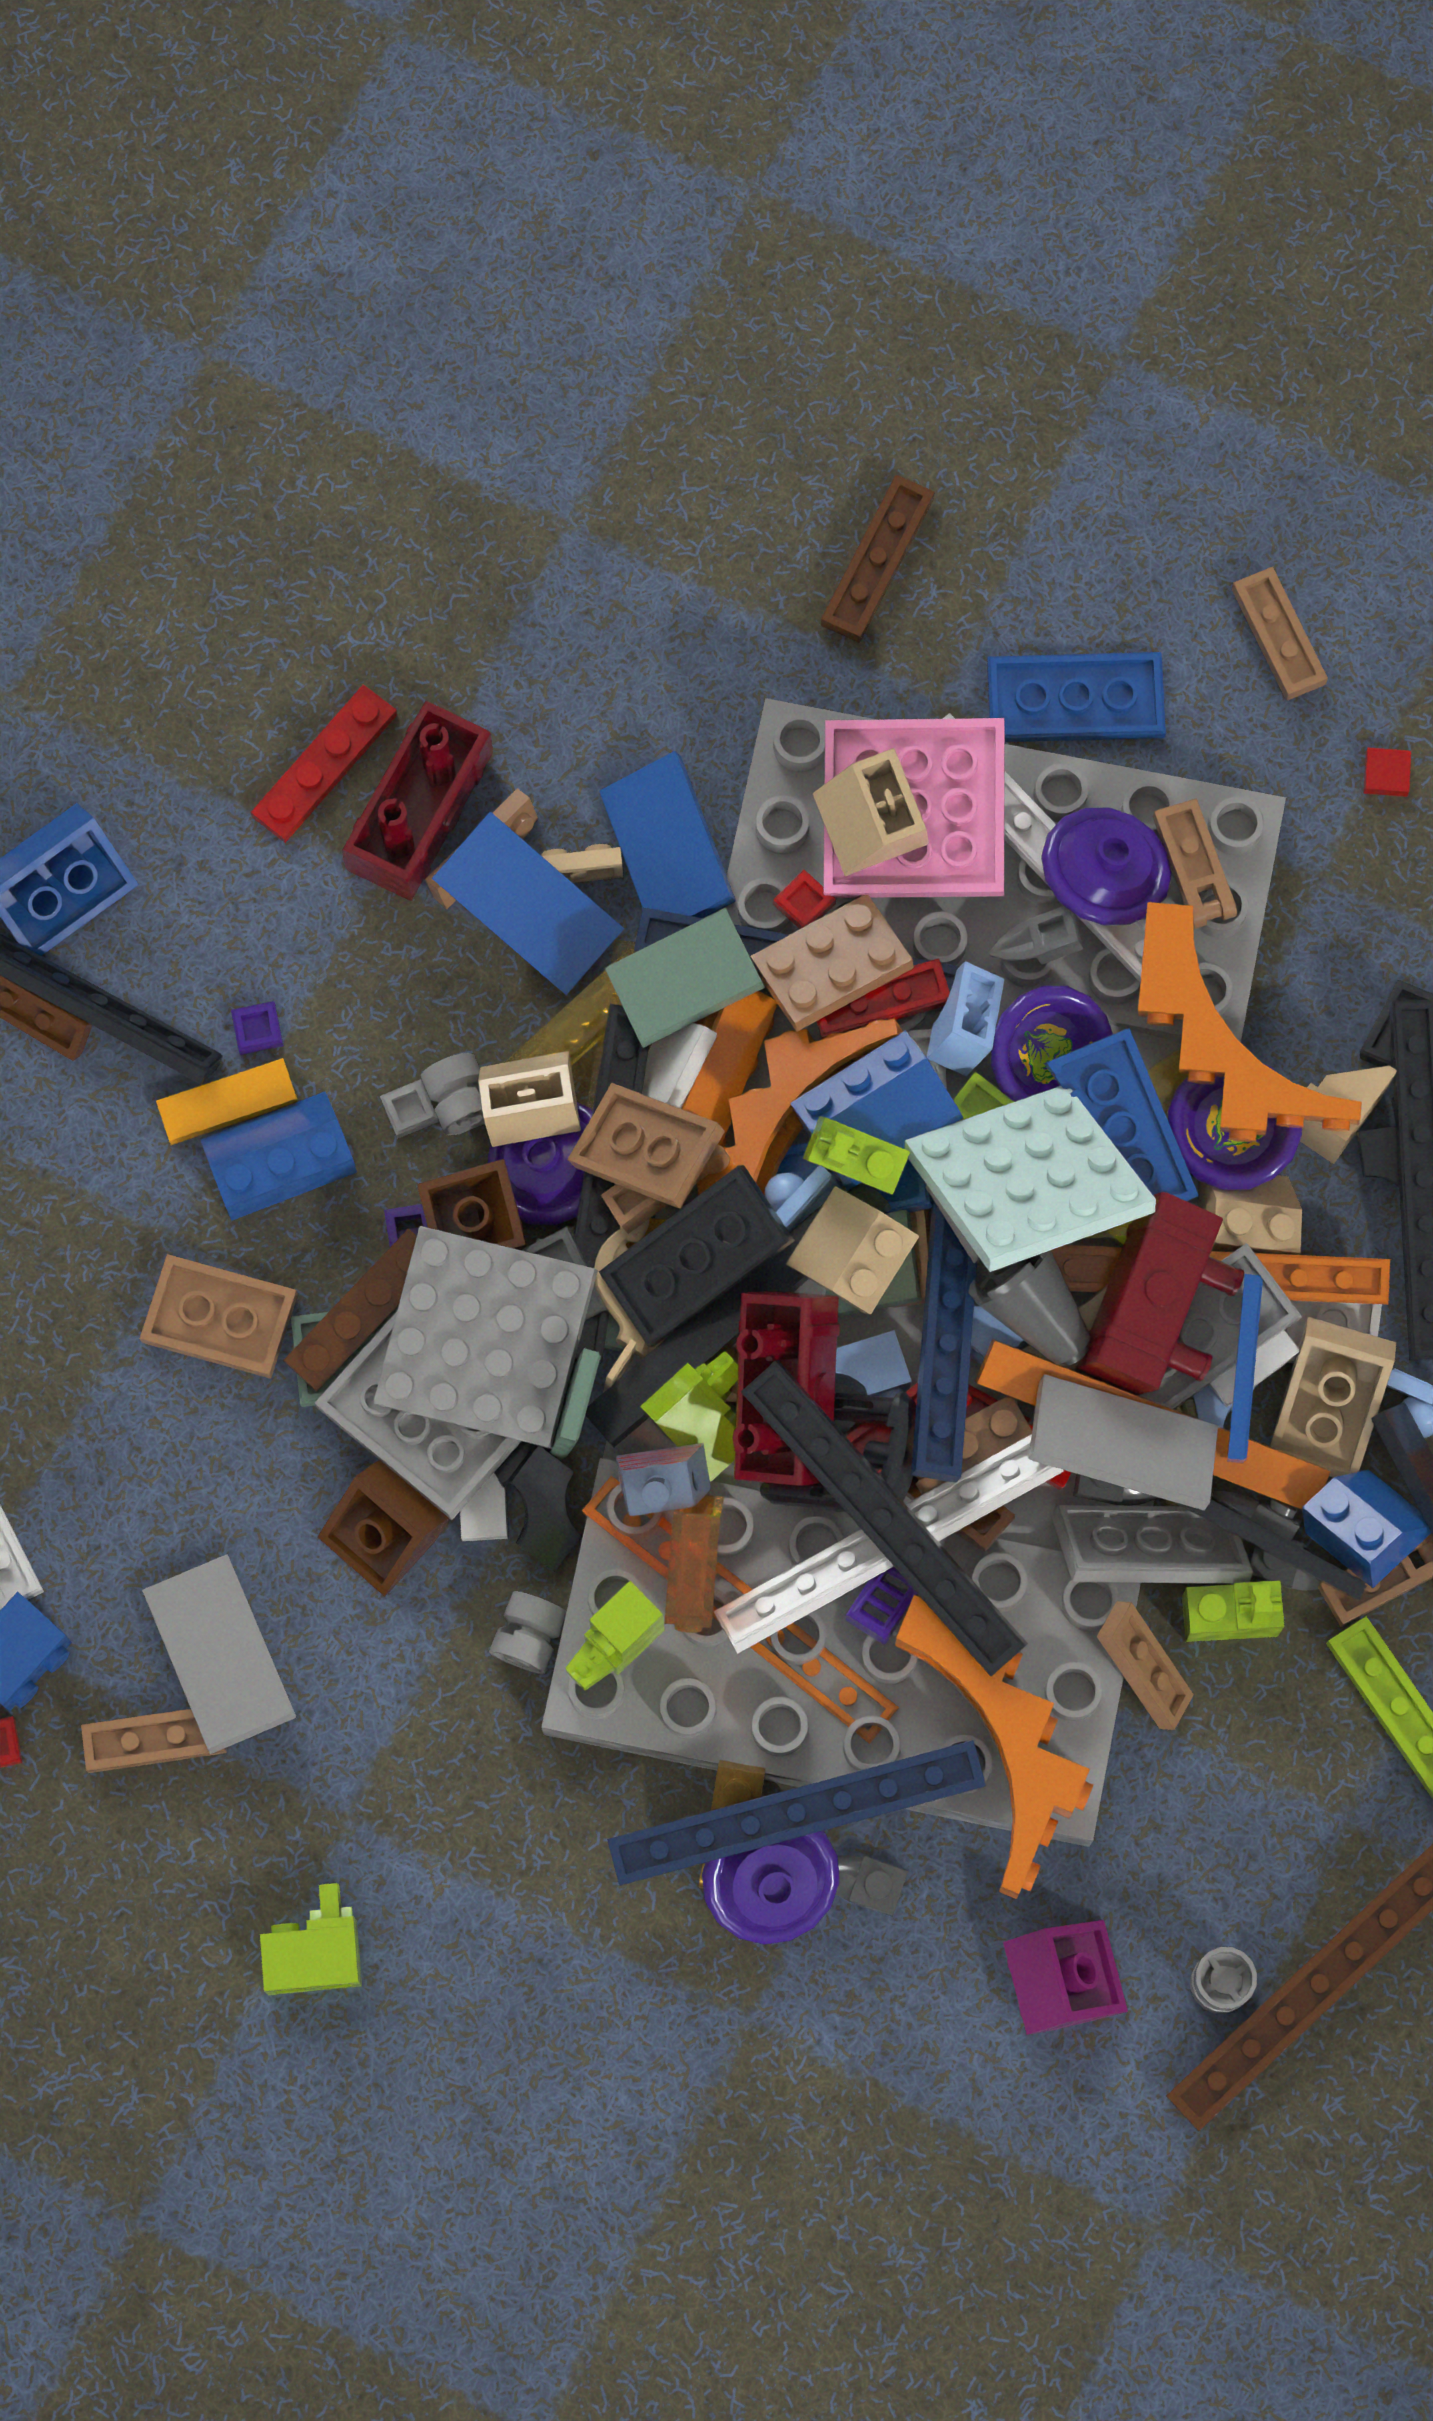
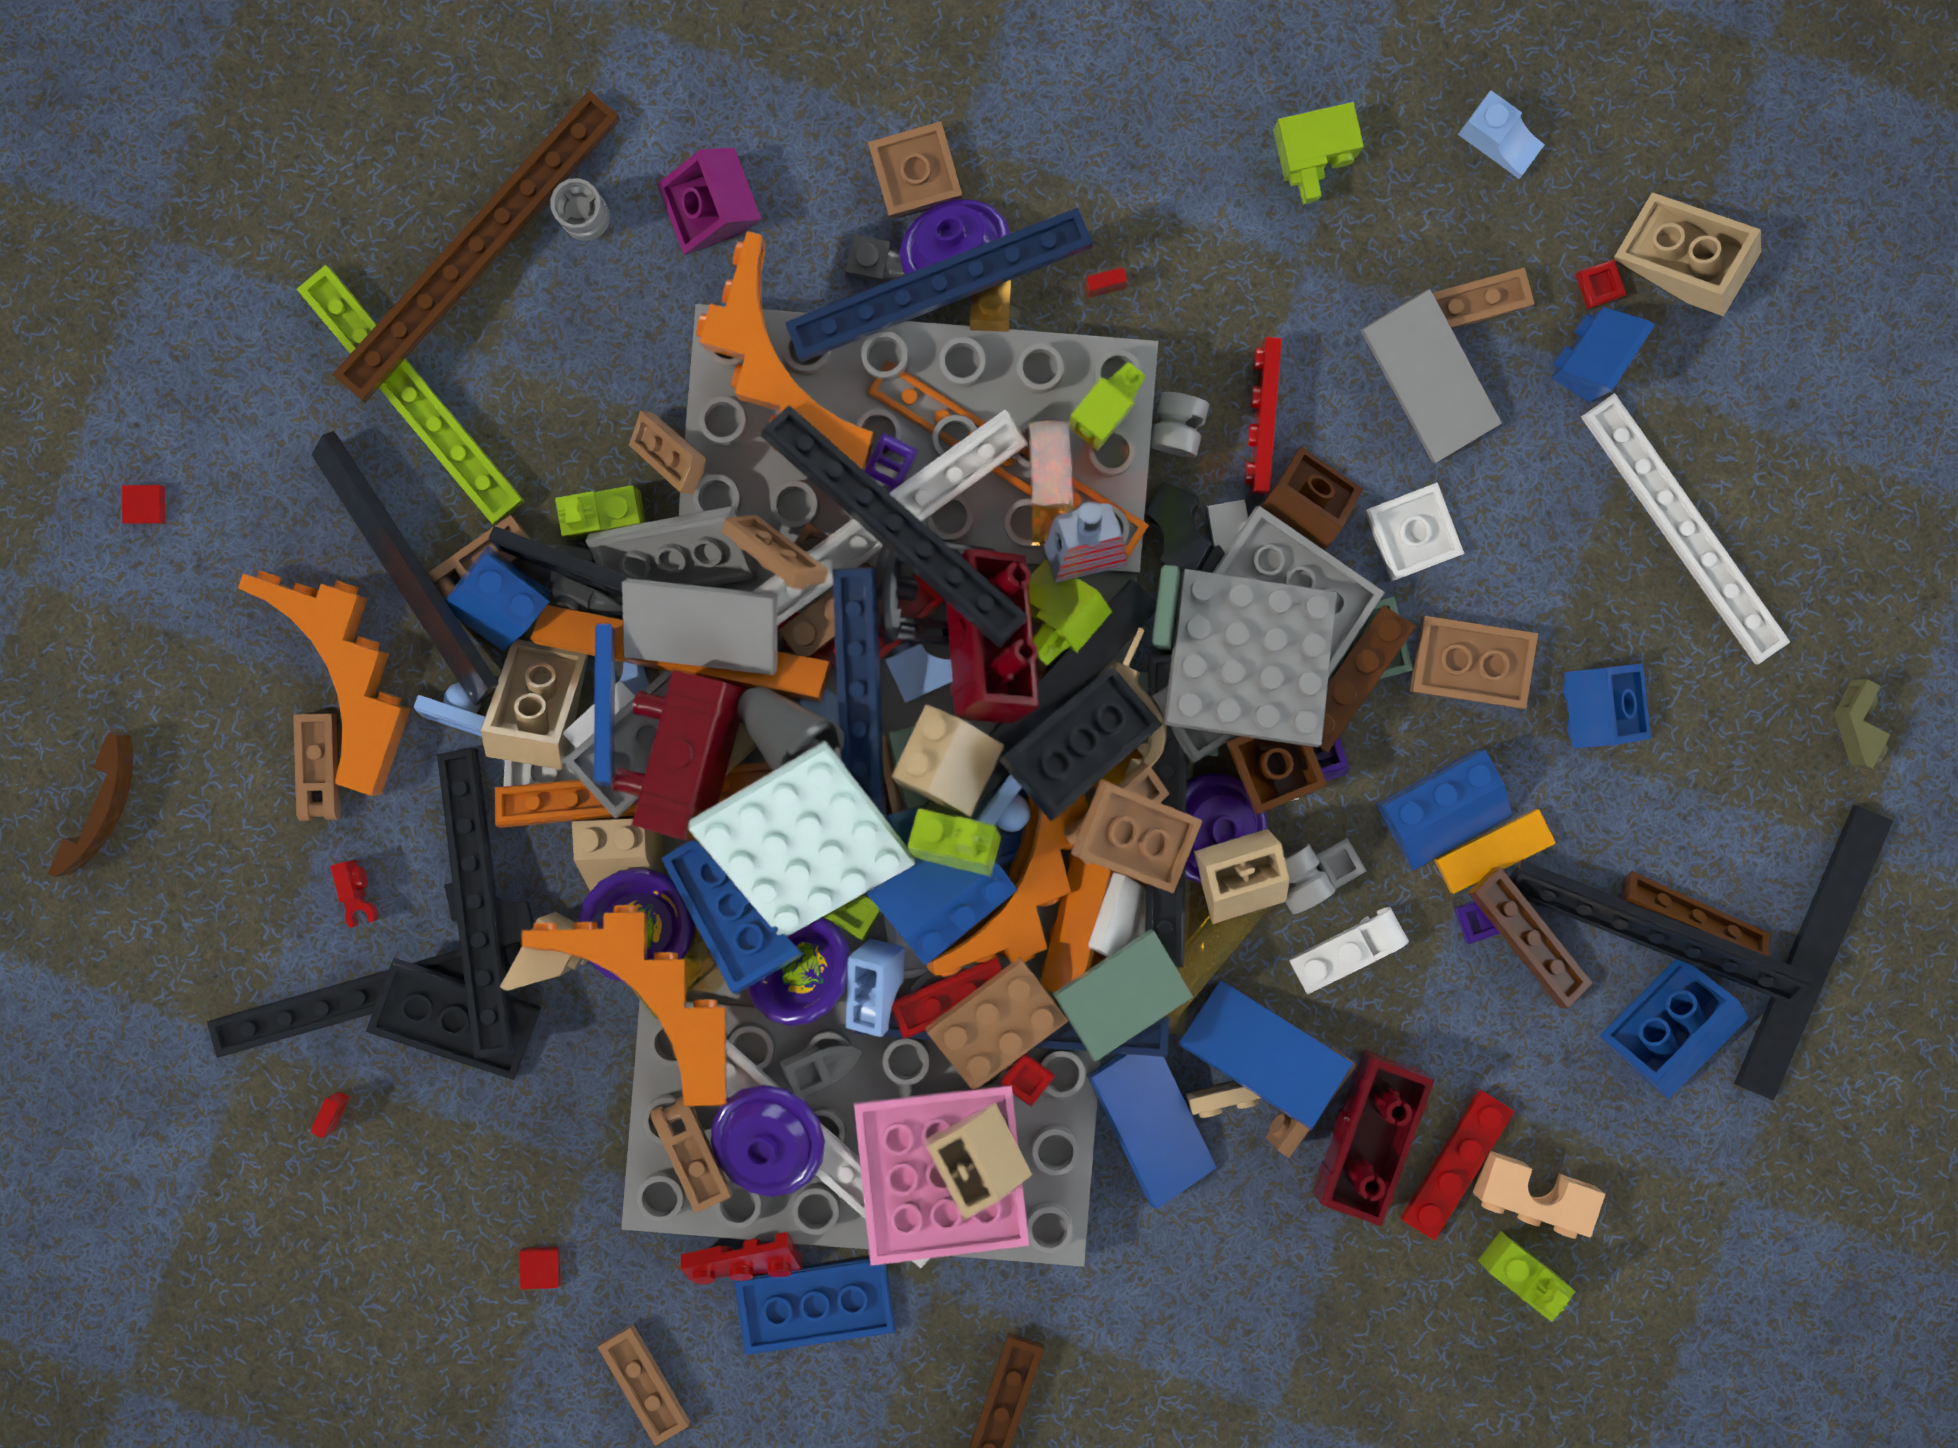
camera: 175 degrees right, 15 degrees up
(71, 1246) = (1607, 706): none -> blue slope
(86, 1936) = (1501, 134): none -> light blue arch
(204, 997) = (1530, 937): none -> reddish brown plate
(208, 700) = (1569, 1206): none -> light nougat arch
(264, 1478) = (1414, 532): none -> white tile
(267, 633) = (1526, 1276): none -> lime hinge
(412, 1009) = (1349, 950): none -> white plate
(421, 1652) = (1264, 400): none -> red plate
(593, 1815) = (1105, 282): none -> red tile
(808, 1984) = (915, 170): none -> medium nougat plate
(1026, 1511) = (775, 551): none -> medium nougat plate
(1138, 752) = (740, 1265): none -> red wing

